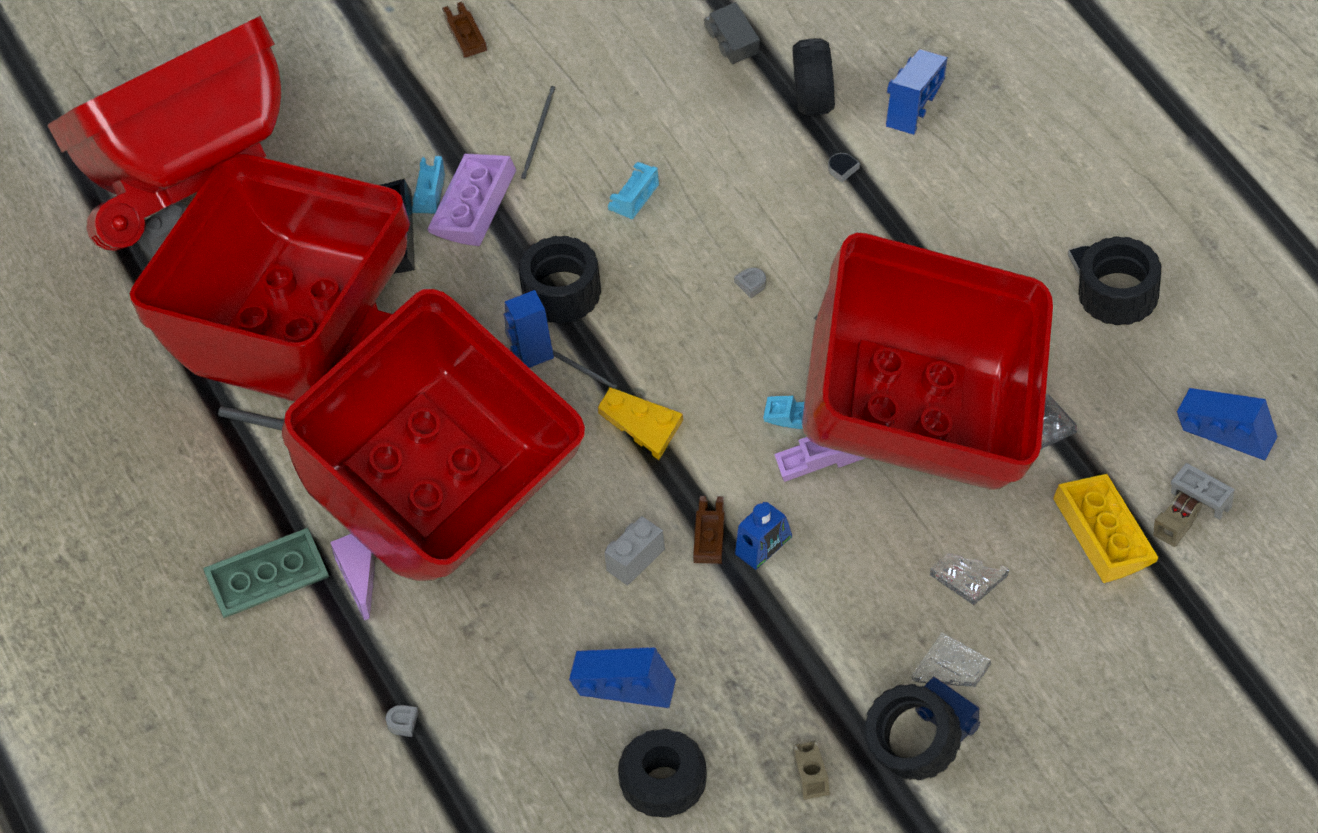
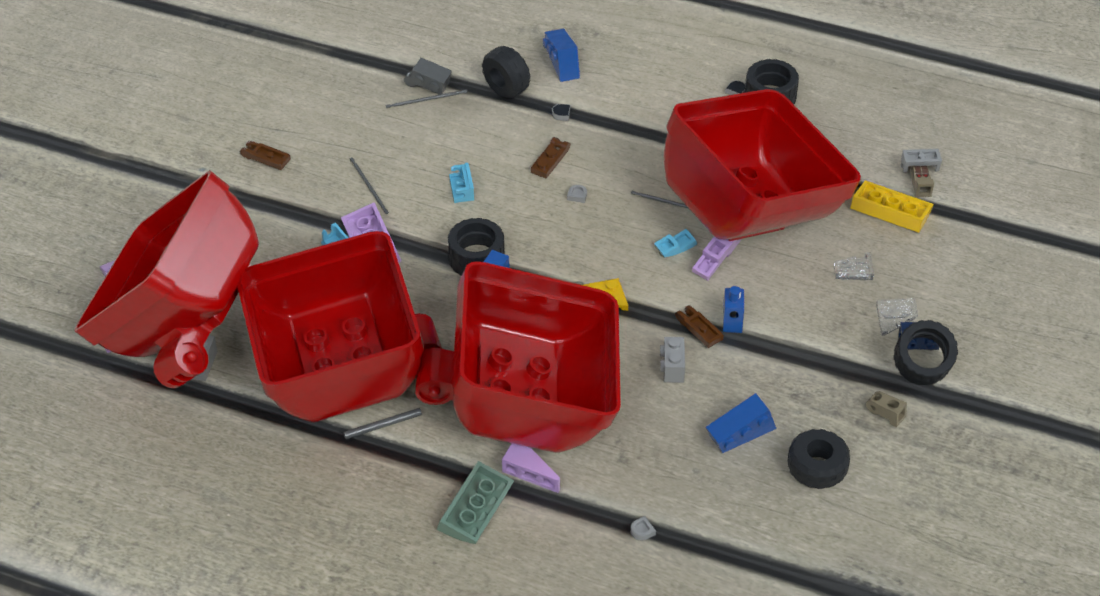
camera: 45 degrees left, 5 degrees down
(709, 59) = (426, 98): none -> dark grey piece
(768, 217) = (550, 158): none -> reddish brown plate
(1229, 420) = (895, 121): blue wedge -> none

